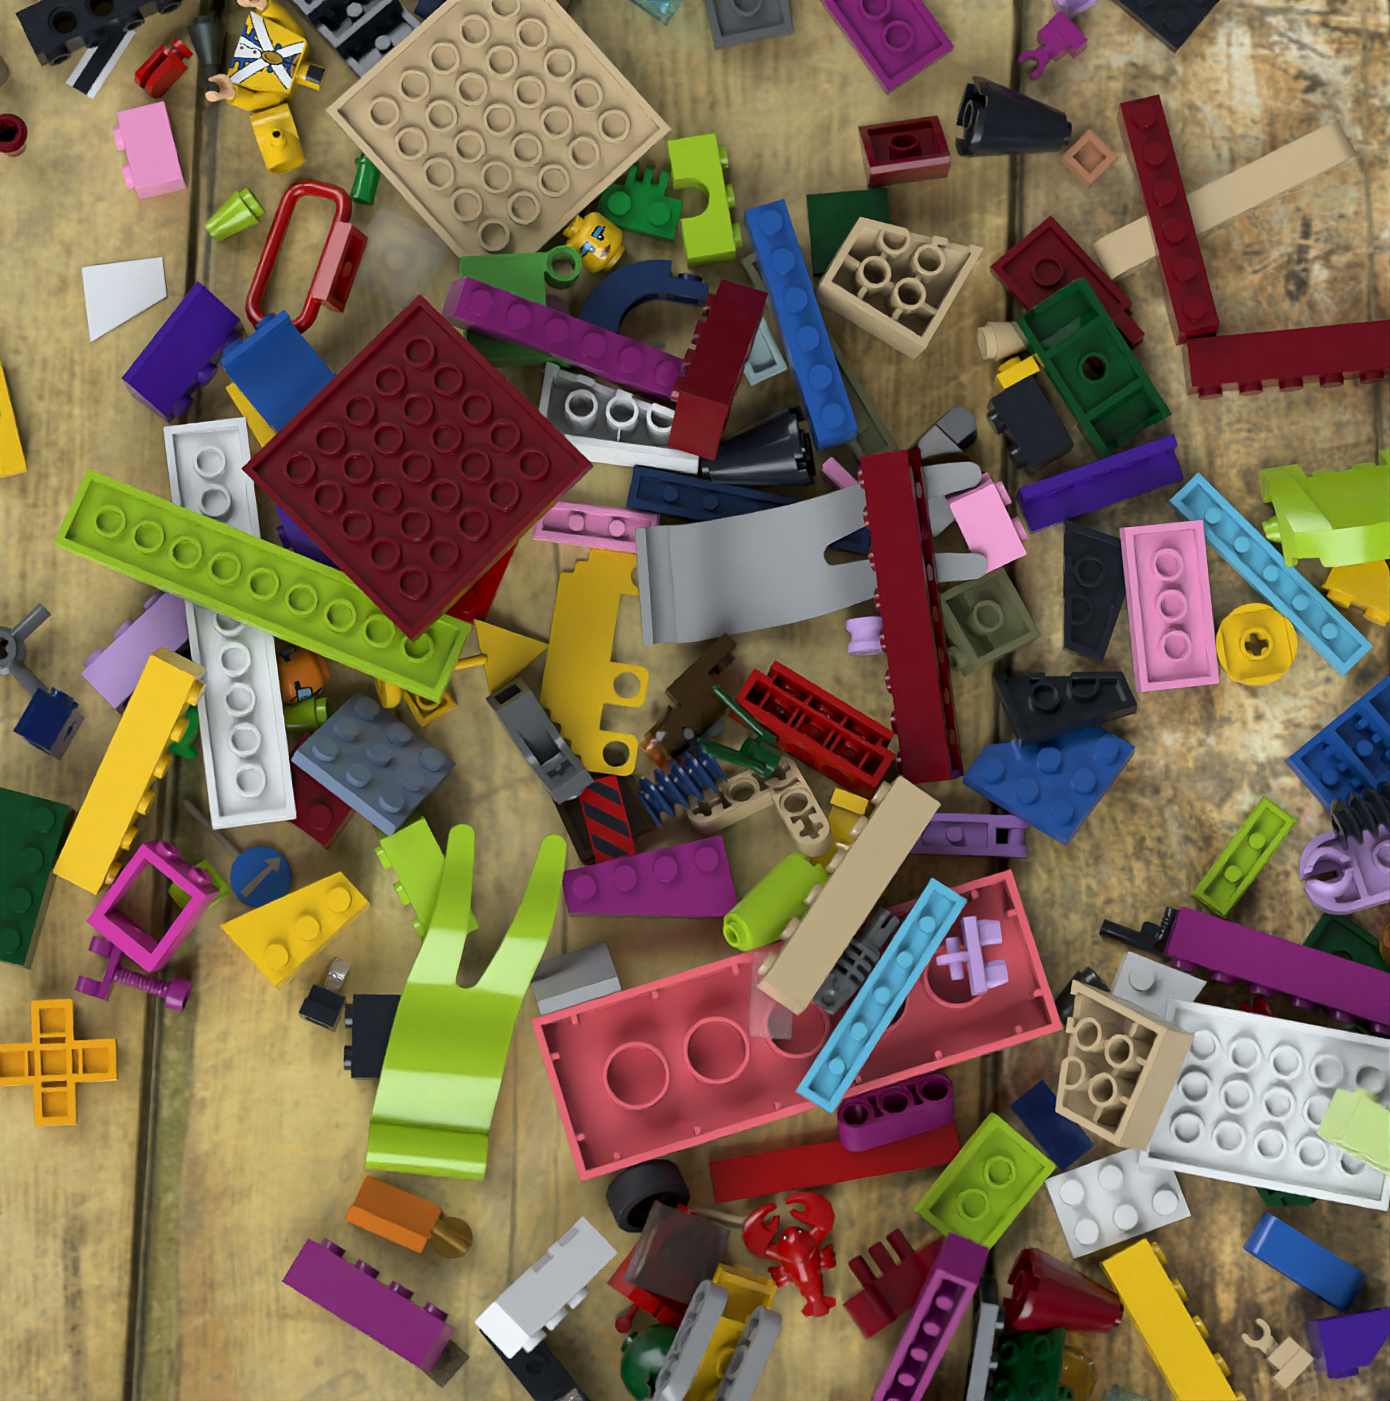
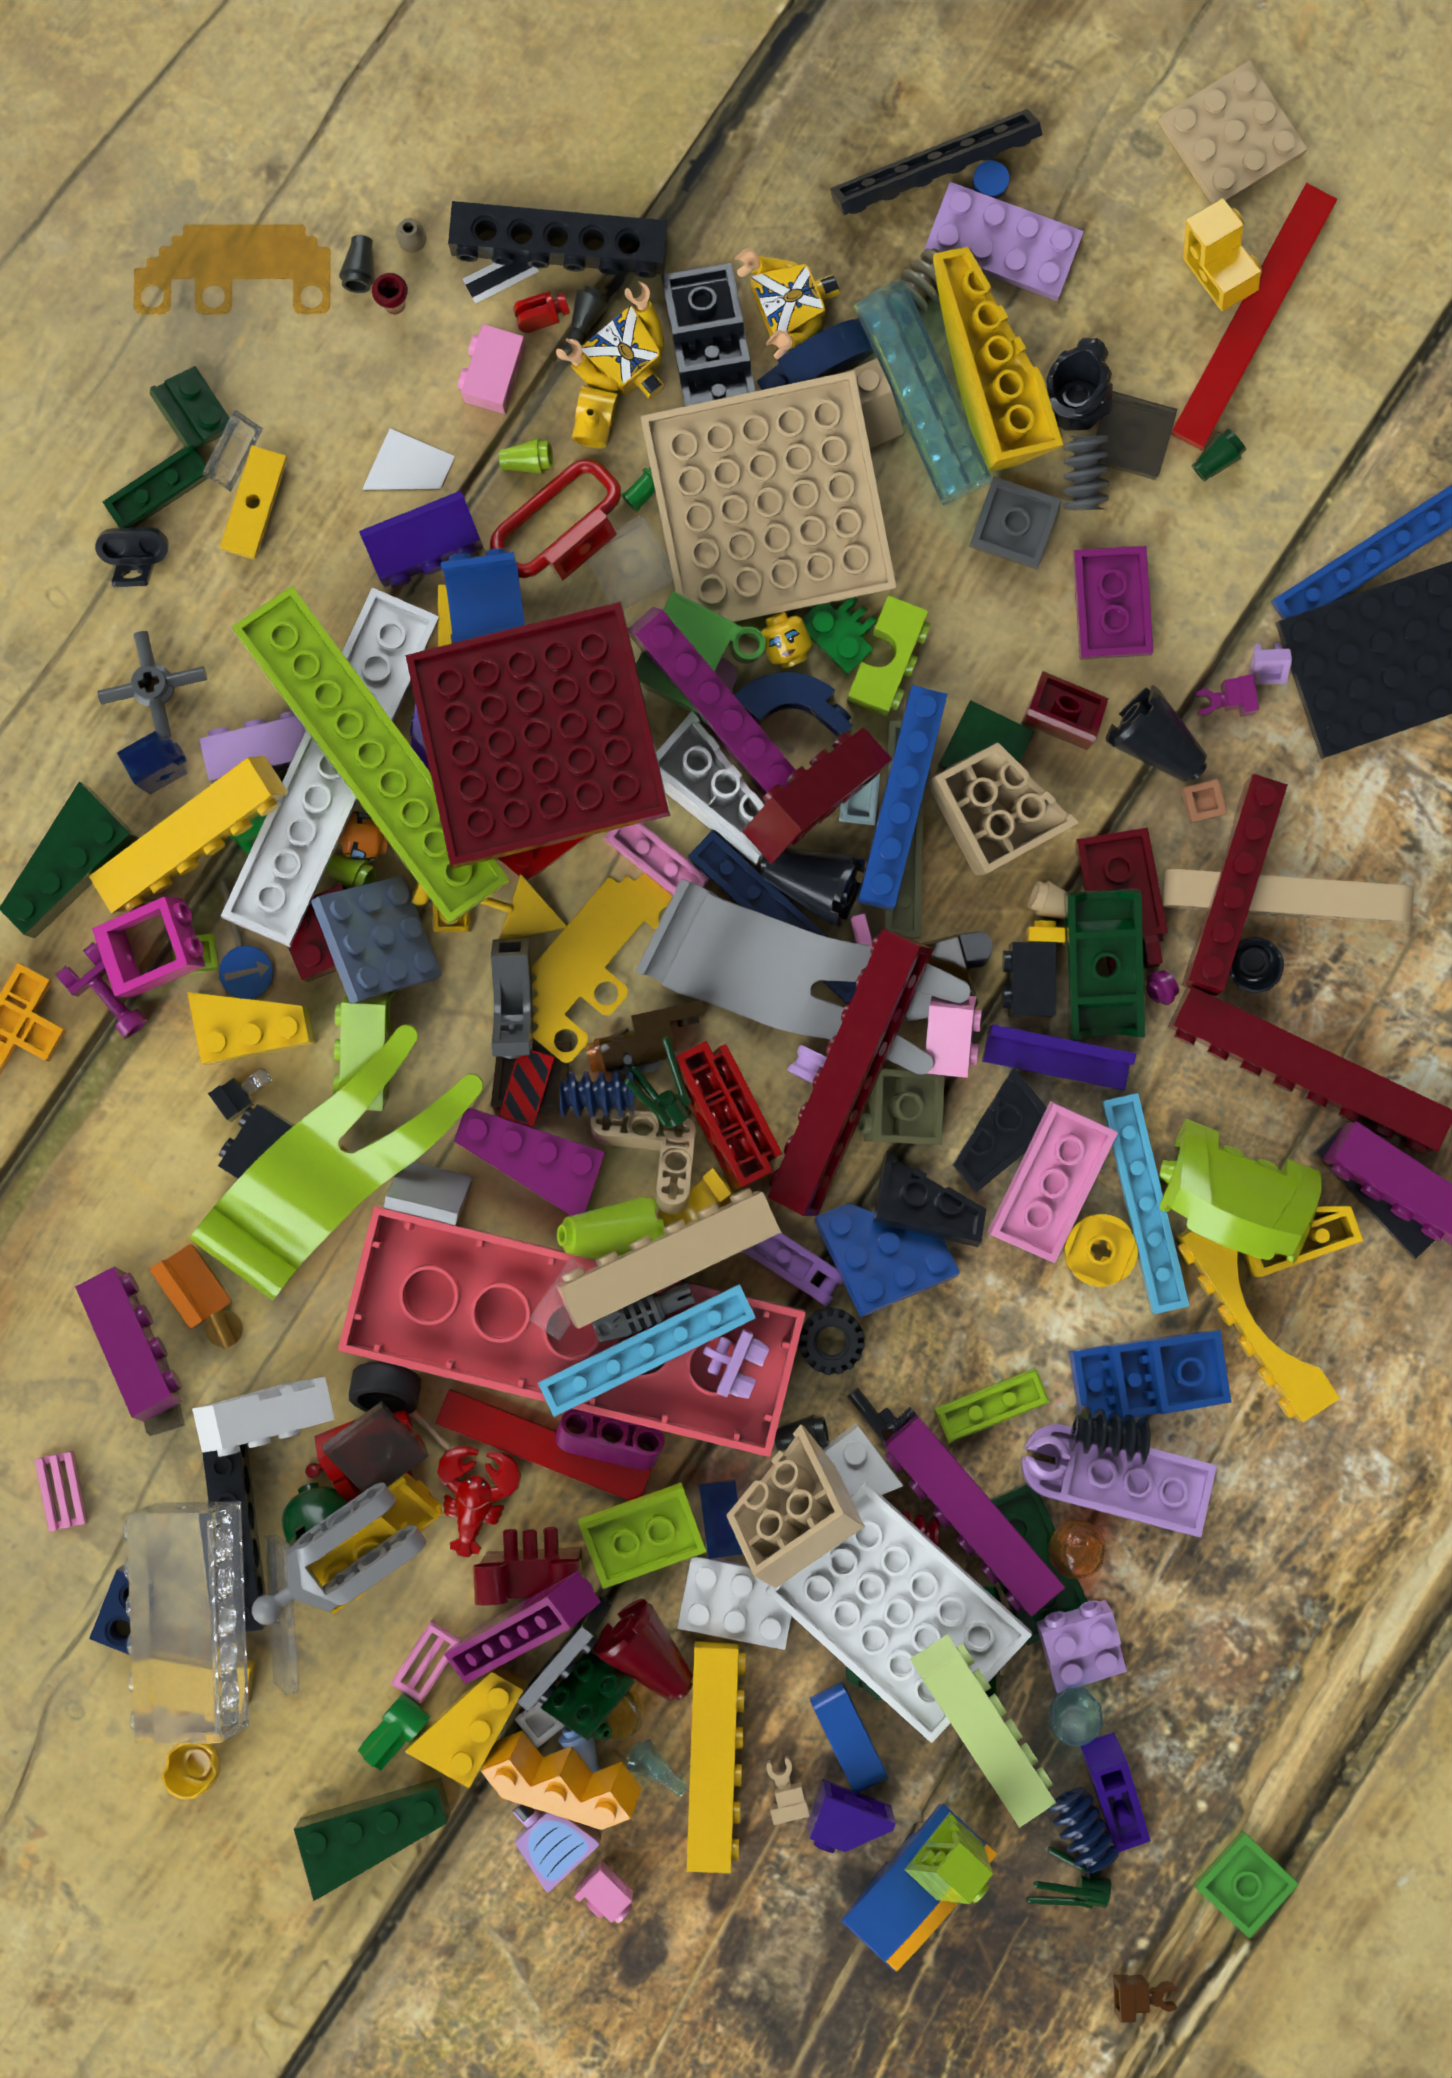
camera: 35 degrees right, 5 degrees up
(1076, 882) = (831, 1363): none -> black tyre
(1158, 358) = (1162, 987): none -> magenta plate
(1236, 283) = (1257, 965): none -> black hair

